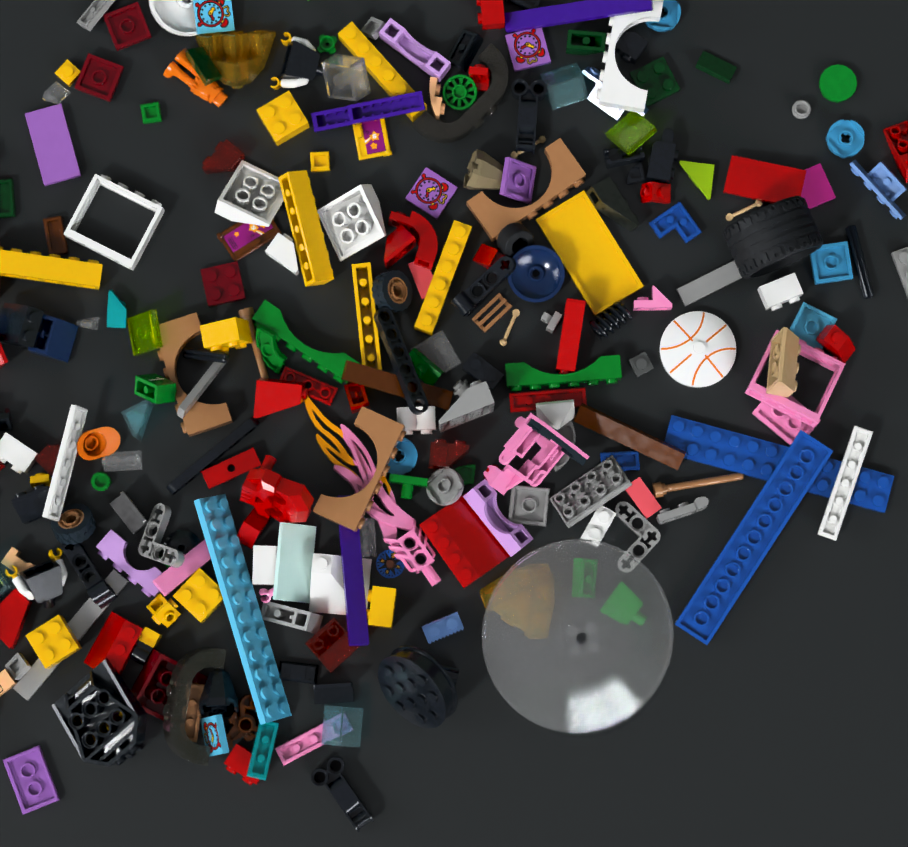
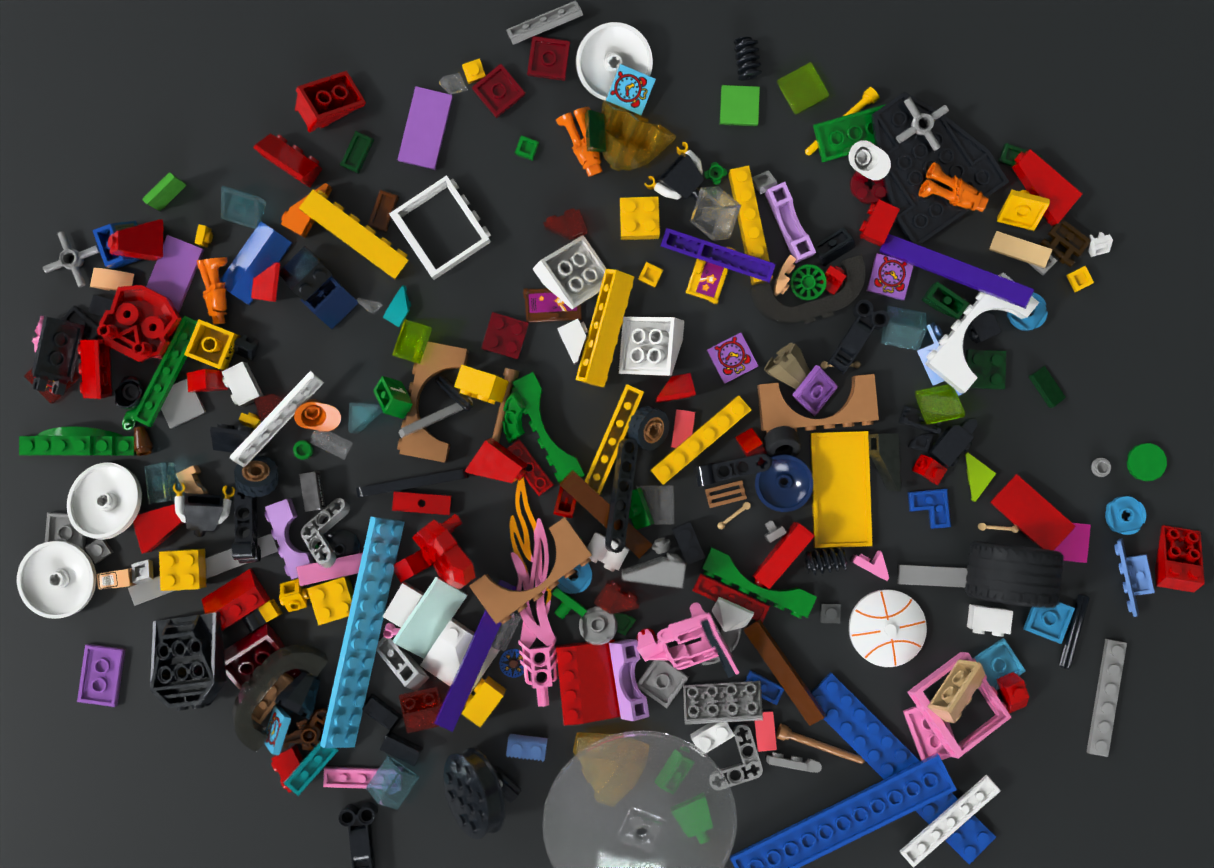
camera: 30 degrees right, 5 degrees up
(424, 234) = (705, 391): red arch -> none

